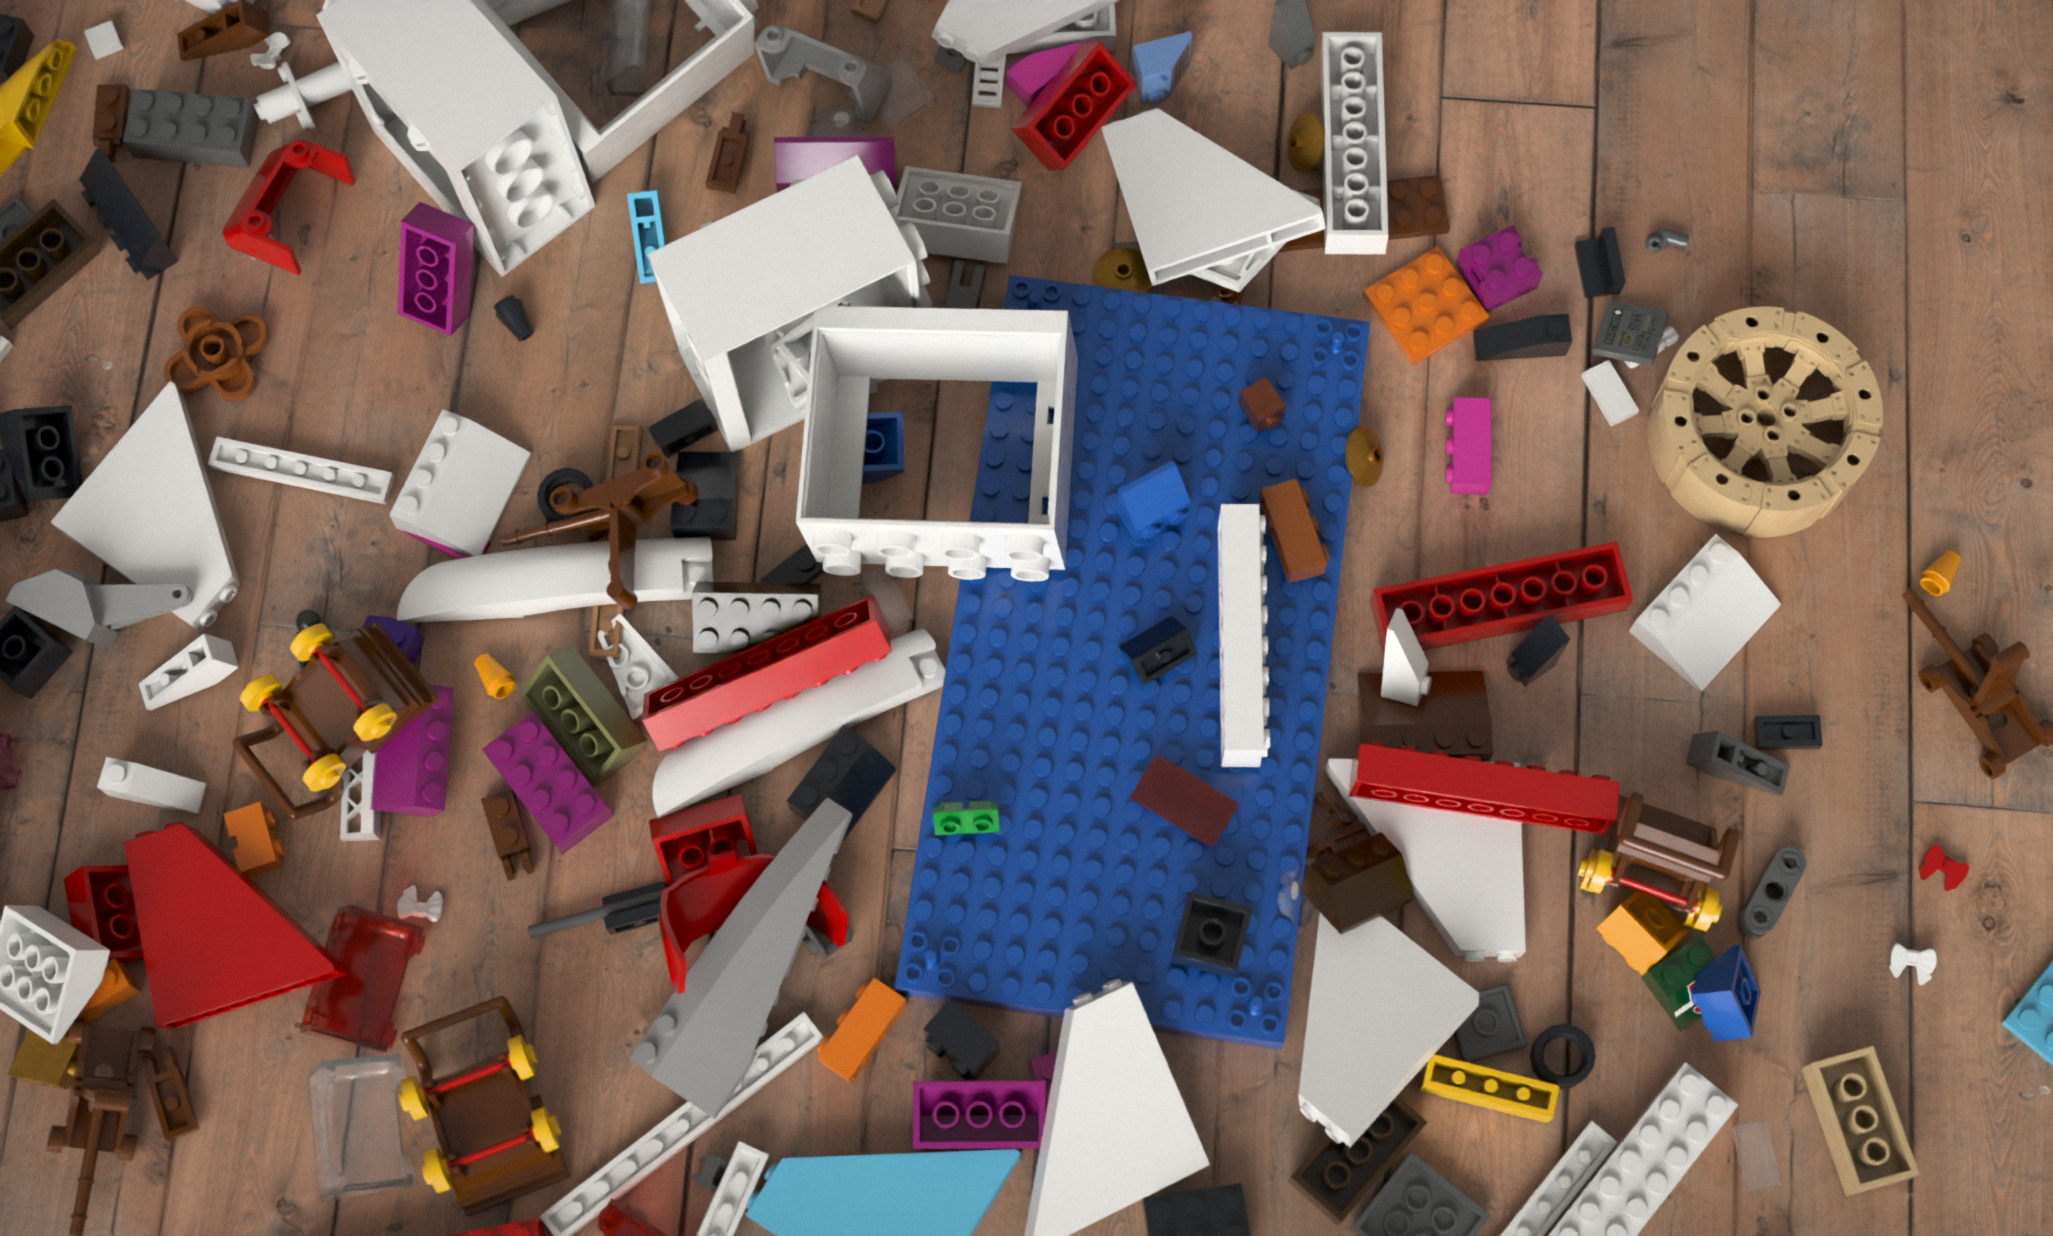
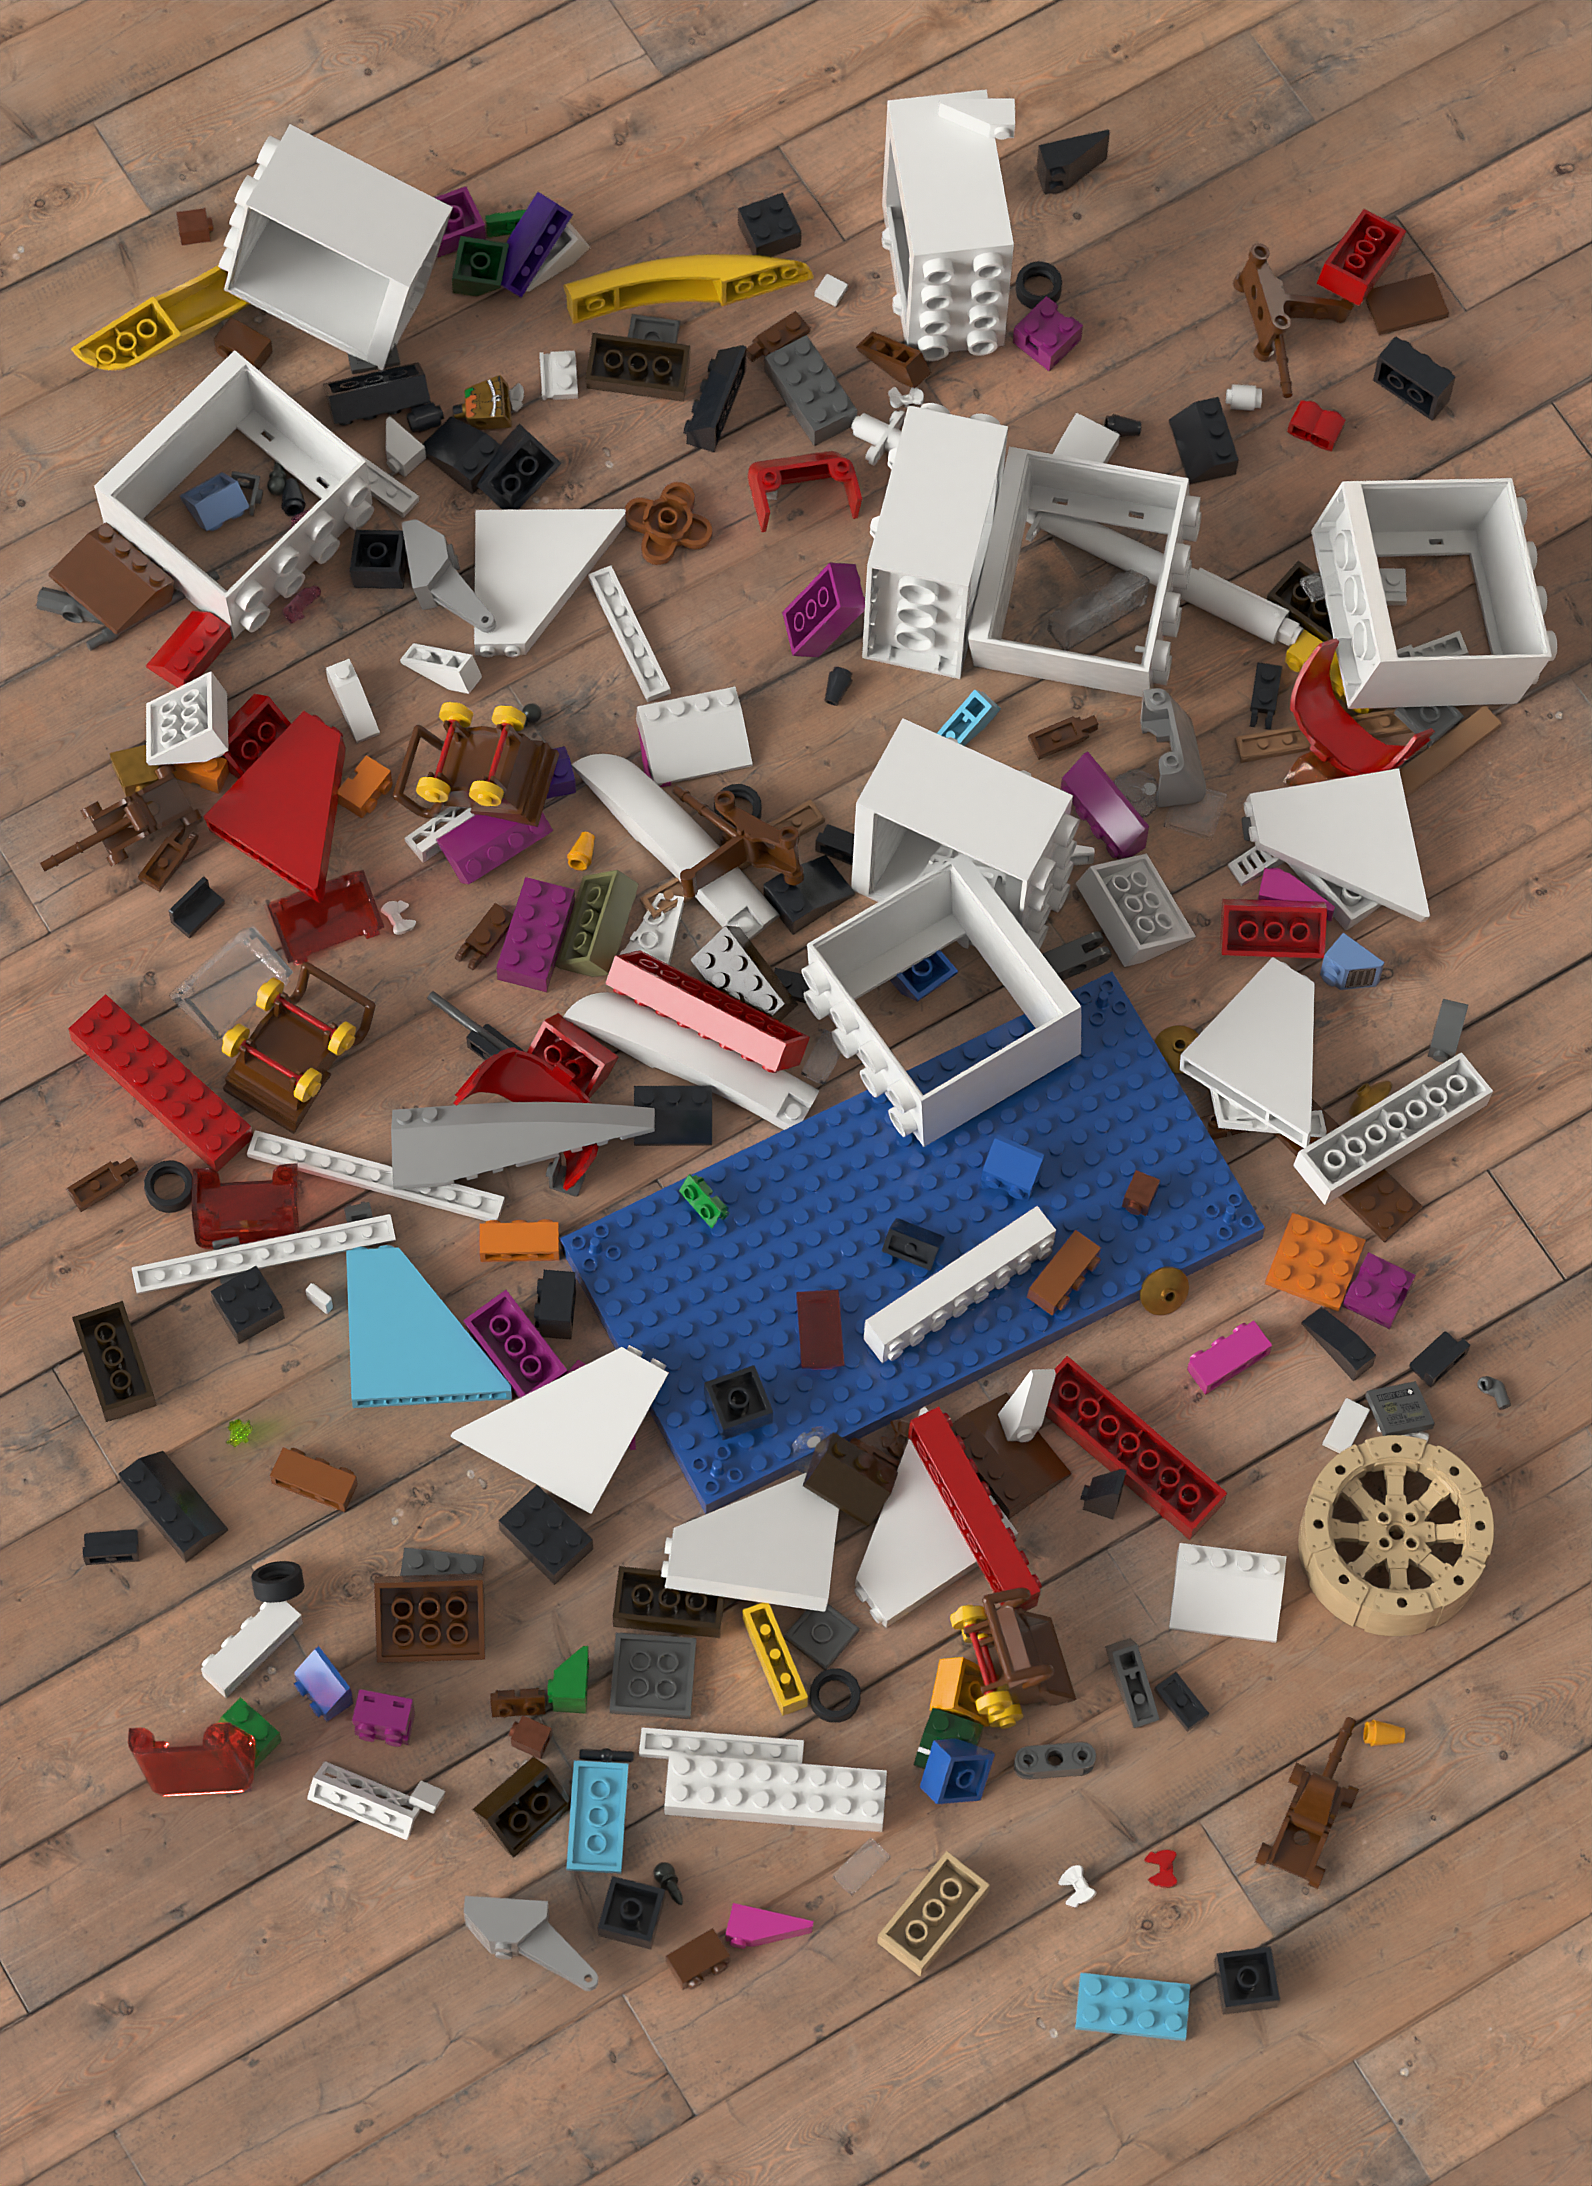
camera: 50 degrees right, 5 degrees down
(248, 1104) = (195, 908): none -> black panel

